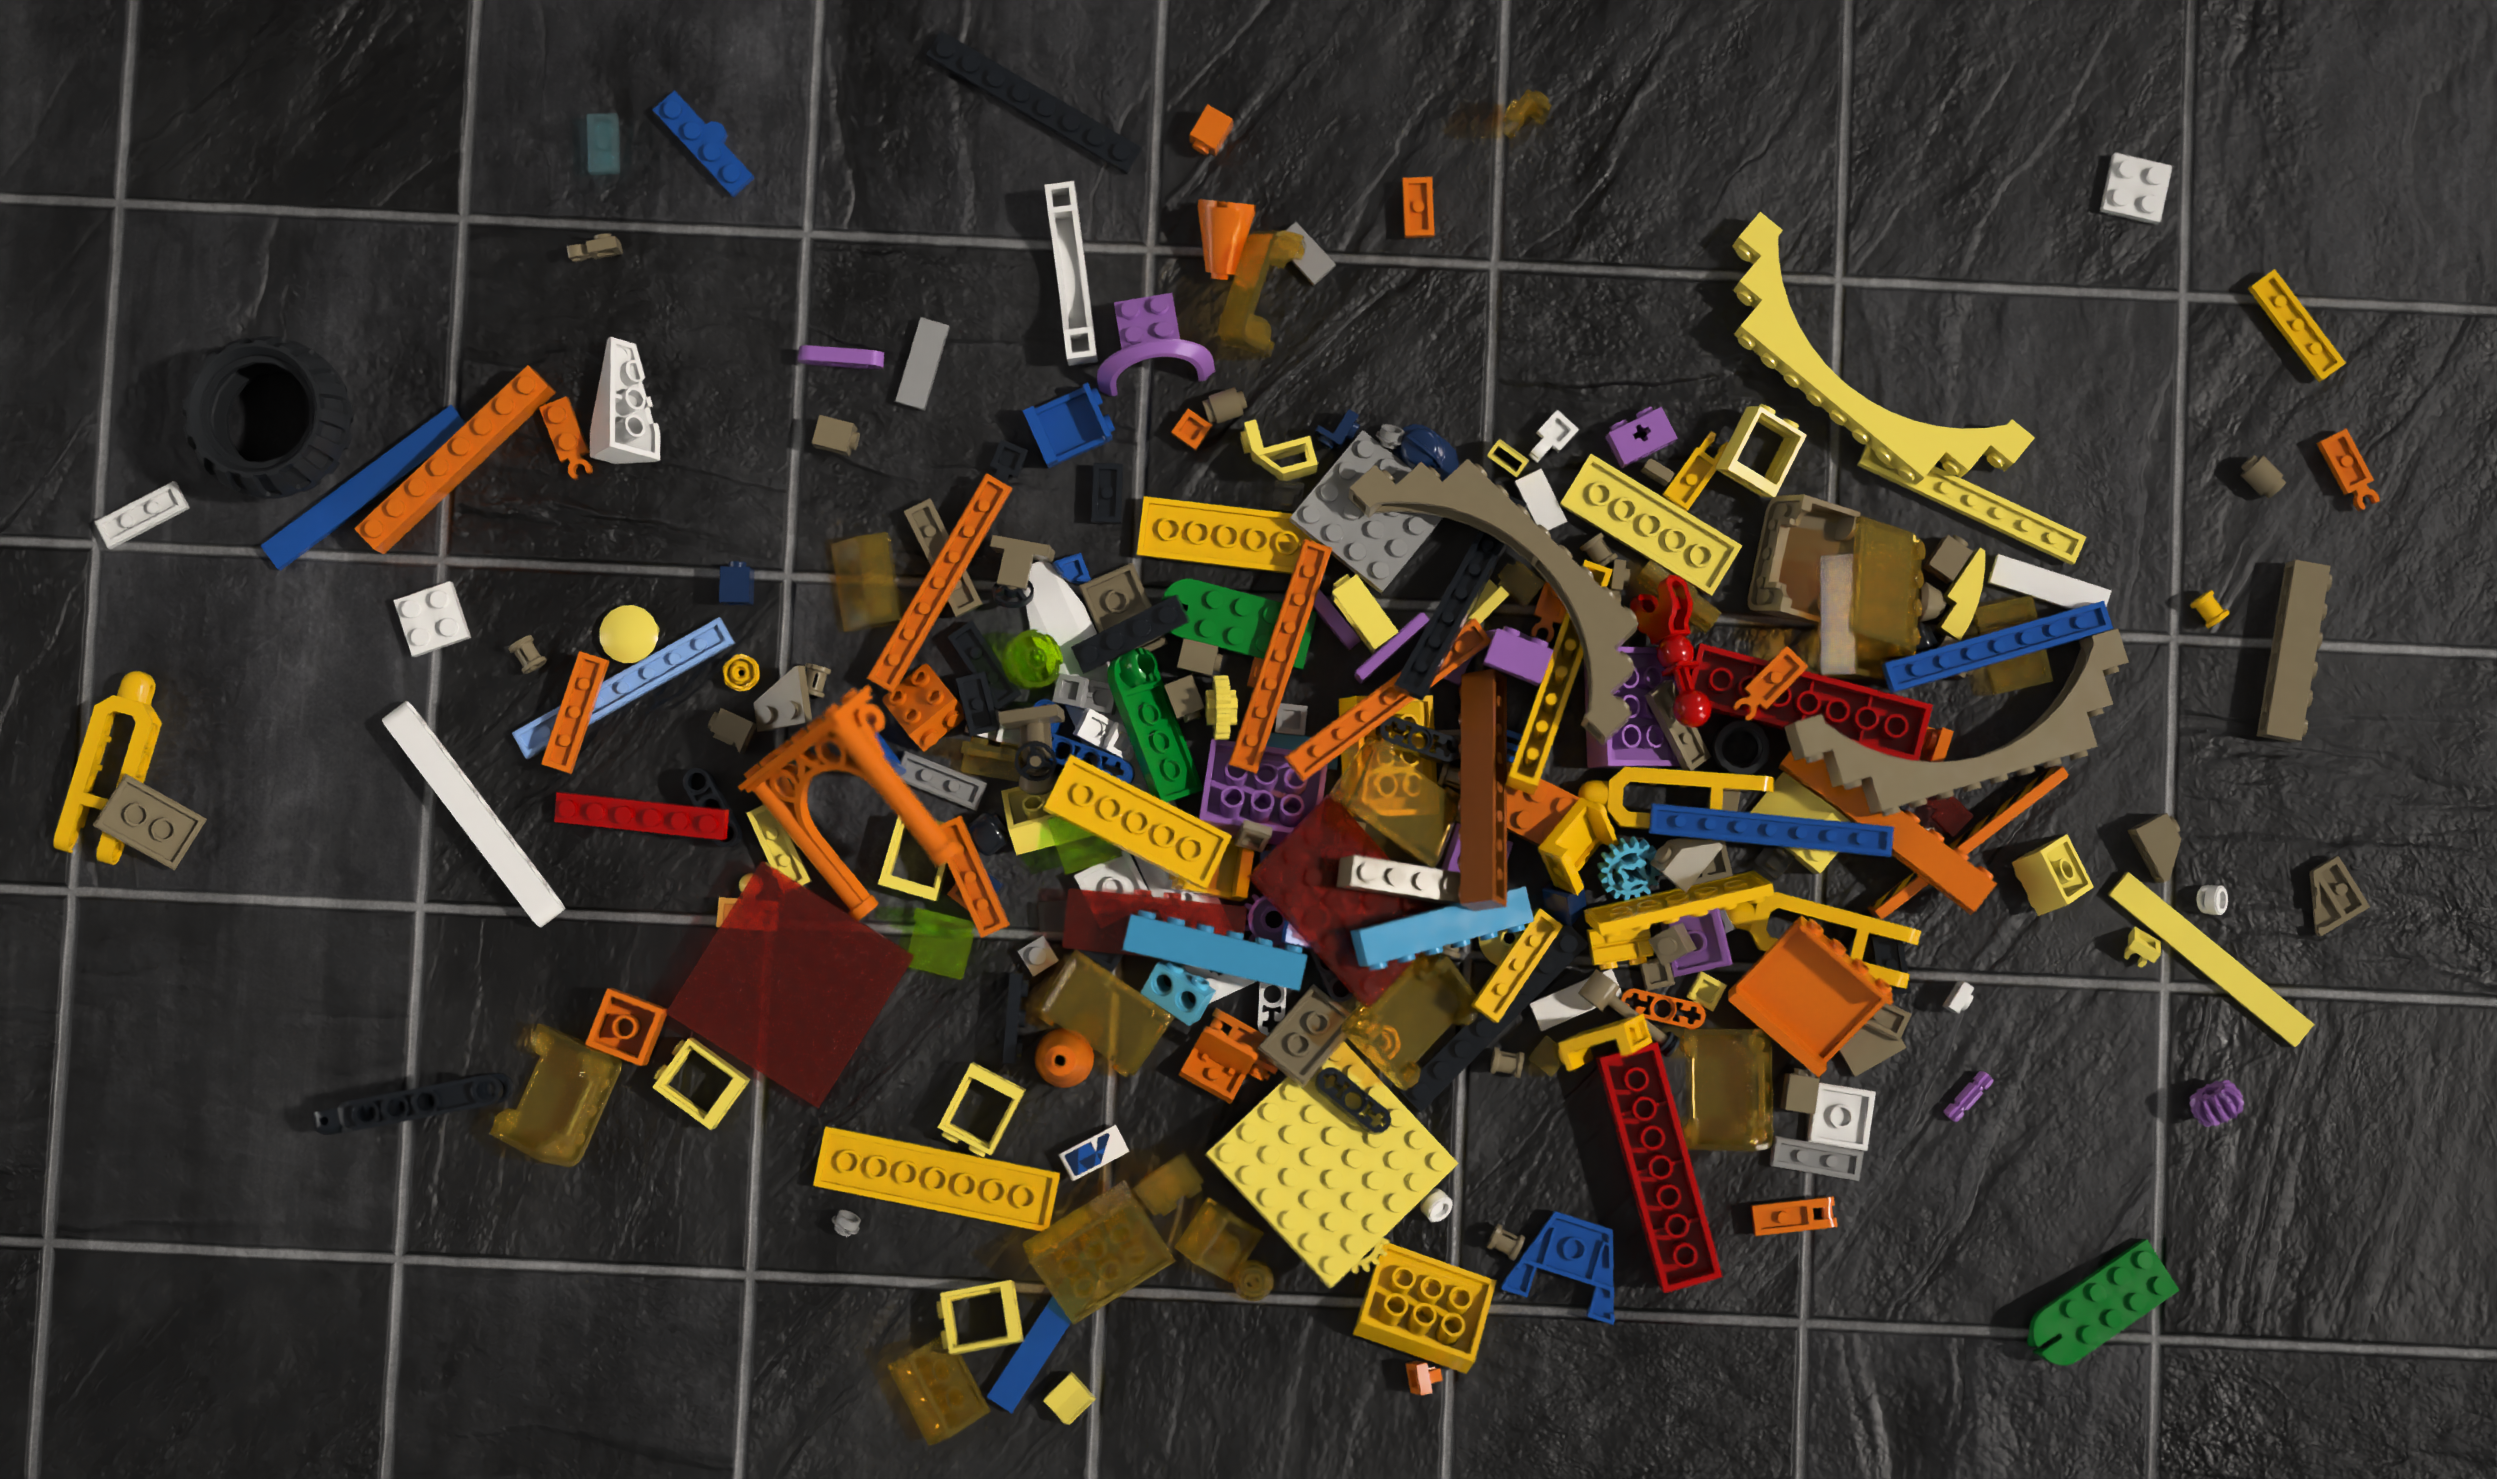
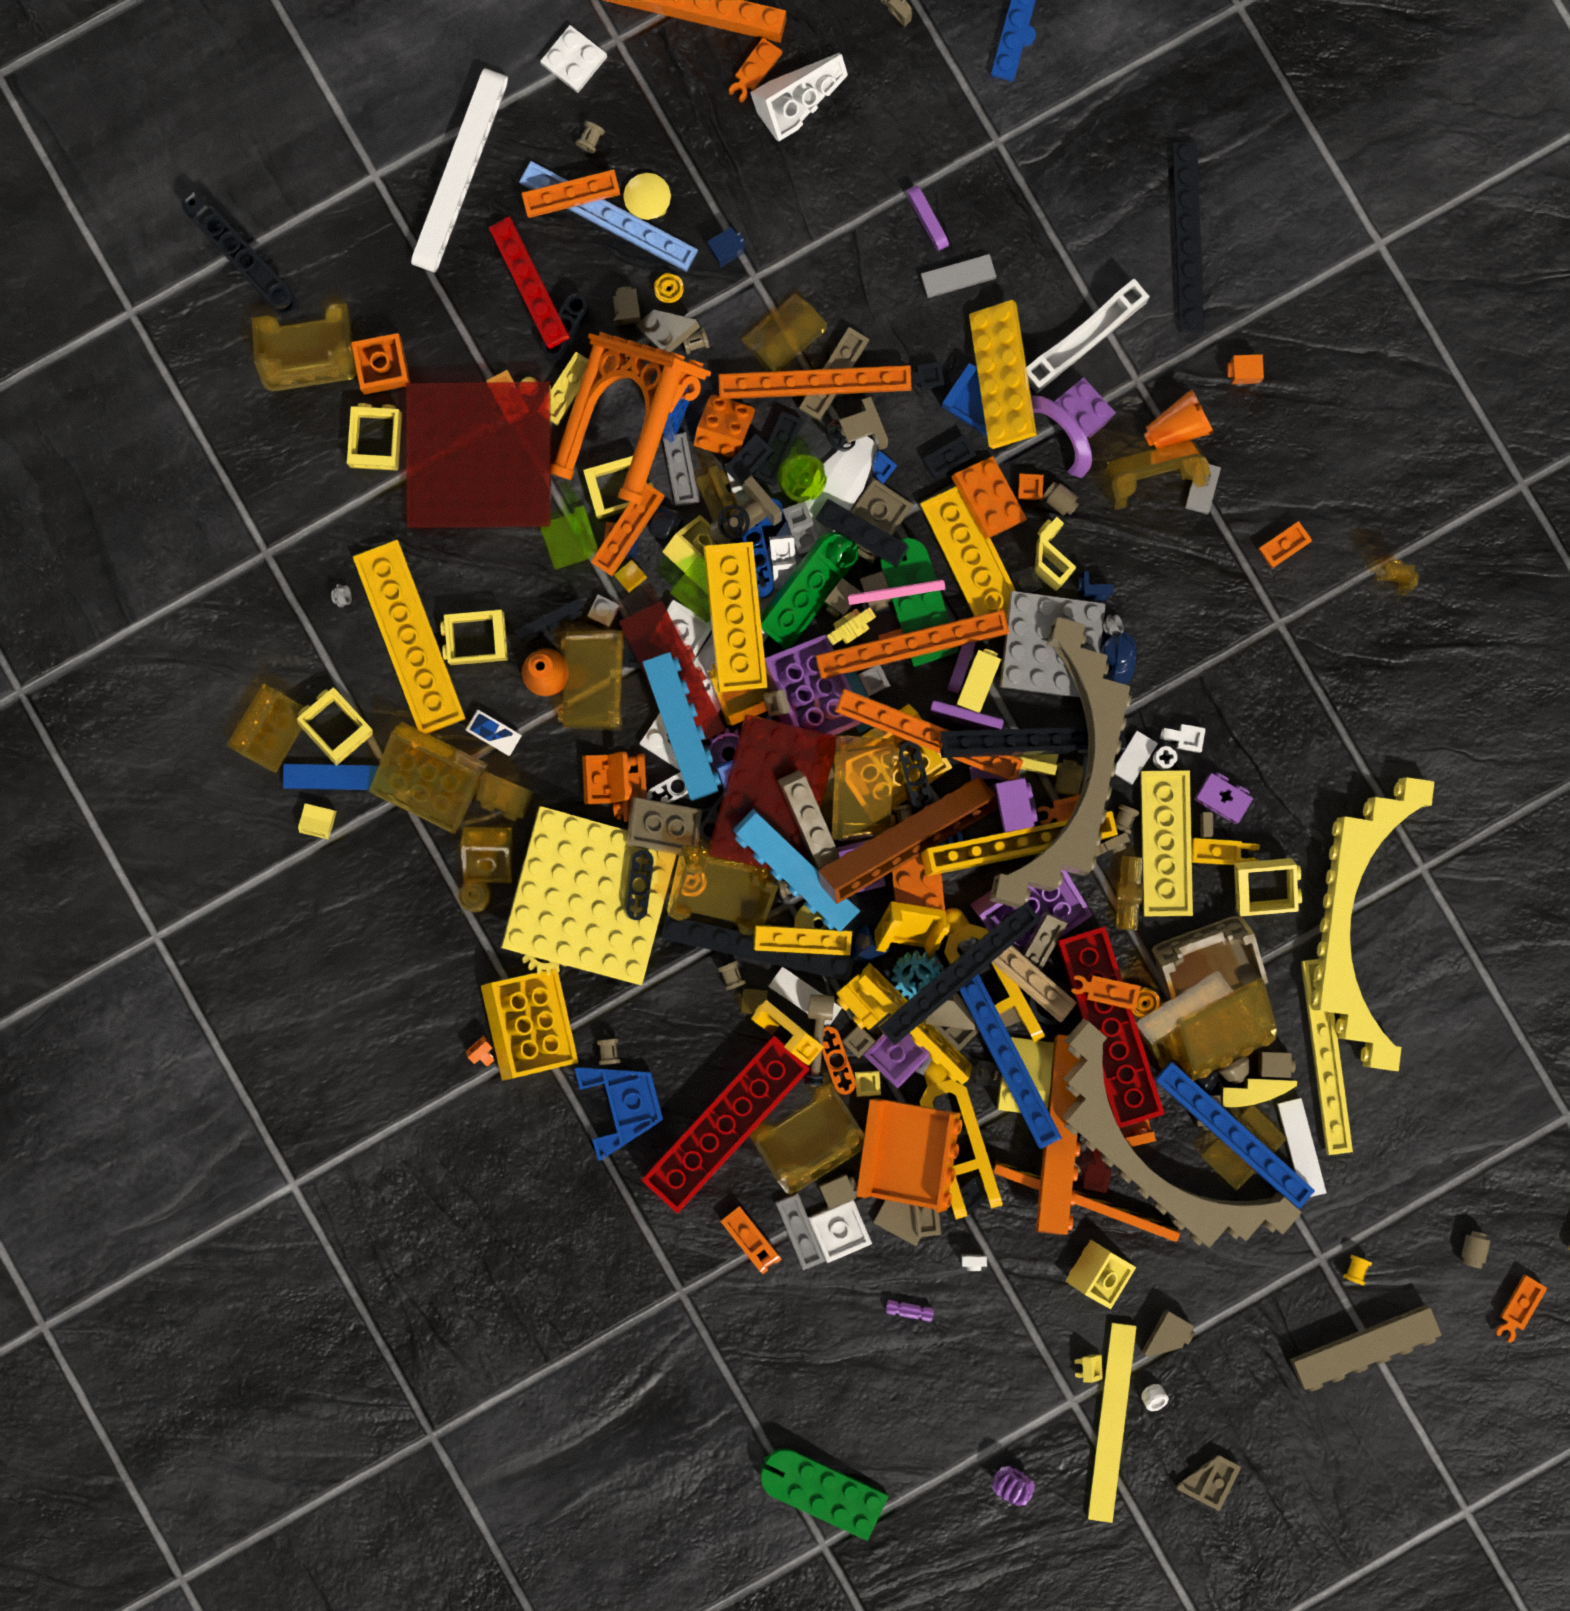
camera: 65 degrees right, 0 degrees up
(835, 435) = (871, 248): dark tan brick -> none
(1019, 904) = (630, 576): none -> yellow slope
(1057, 383) = (1002, 374): none -> yellow plate
(1175, 998) = (632, 720): medium azure brick -> none
(1176, 479) = (989, 497): none -> orange plate
(1216, 638) = (896, 592): none -> bright pink tile
(1436, 1205) = (603, 988): white tile -> none
(1512, 452) = (1154, 728): light yellow piece -> none
(1552, 472) = (1168, 752): none -> white bush
(1657, 826) = (959, 973): none -> black tile
(1667, 627) = (1100, 898): red piece -> none
(1672, 944) = (880, 1041): dark tan brick -> none
(1708, 753) = (1035, 983): none -> tan tile
(1808, 645) = (1152, 1000): none -> yellow plate

